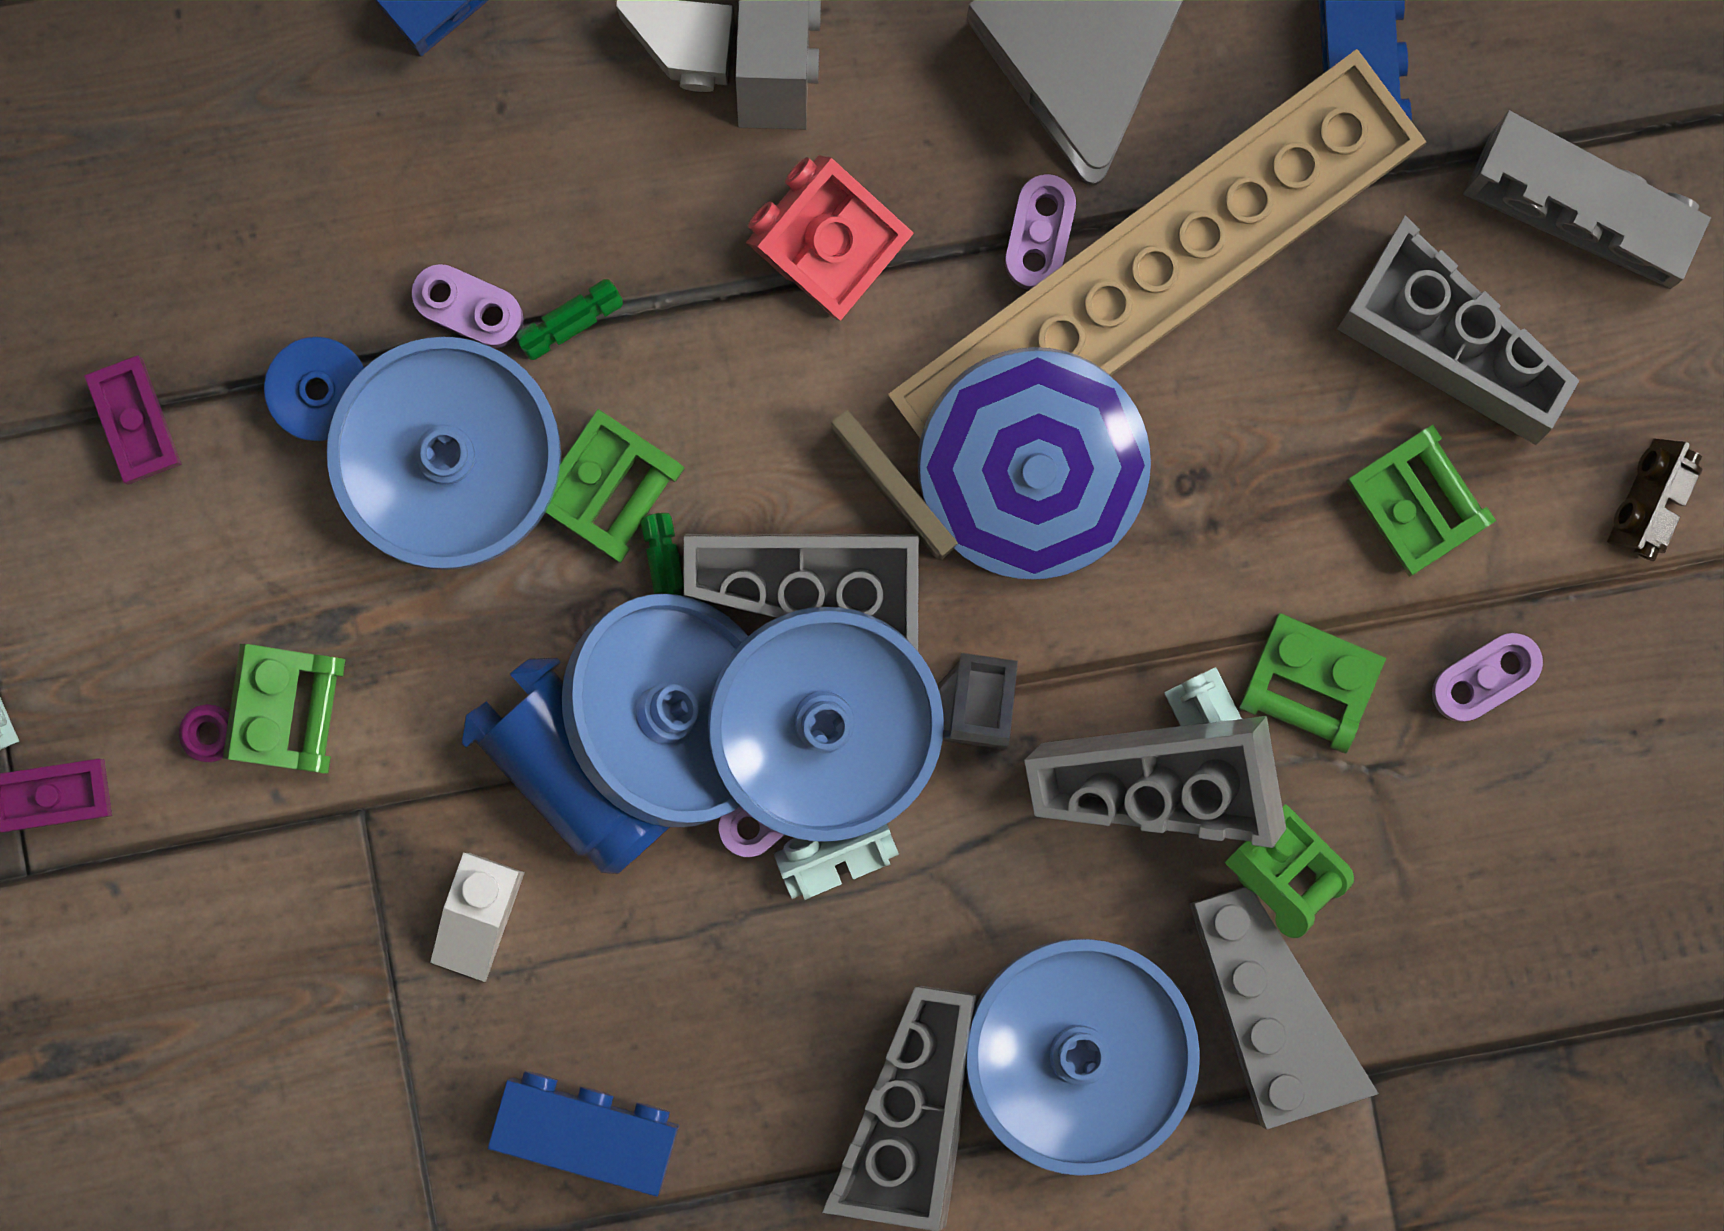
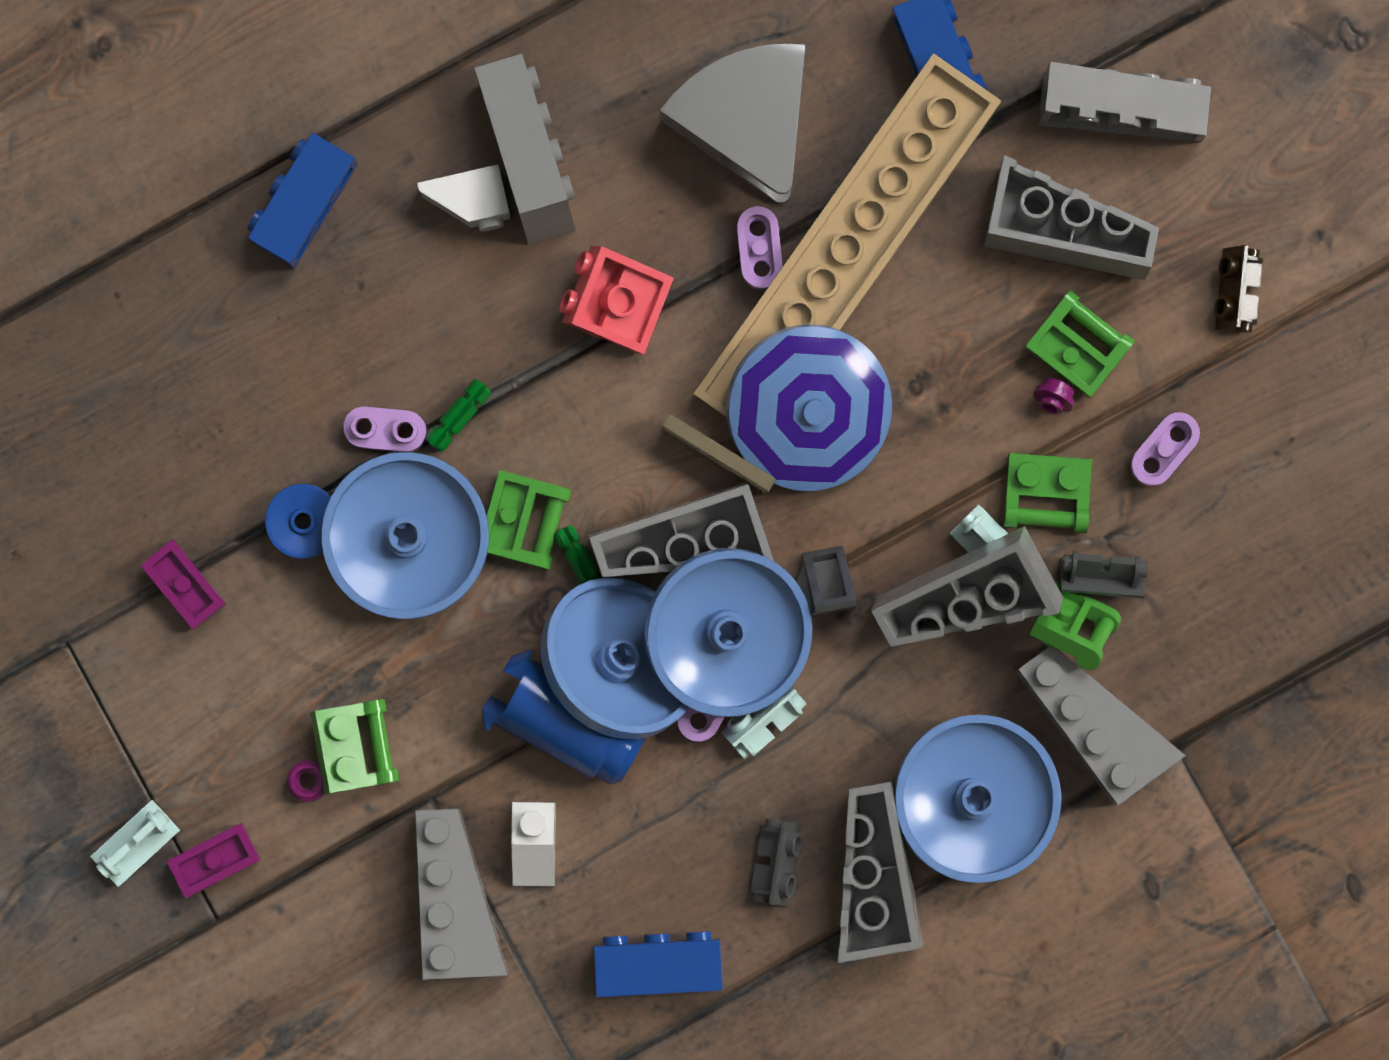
camera: 20 degrees left, 0 degrees up
(340, 967) = (454, 908): none -> light grey wedge
(779, 1075) = (776, 881): none -> dark grey hinge
(1349, 819) = (1103, 577): none -> dark grey hinge
(1364, 558) = (1054, 396): none -> magenta plate

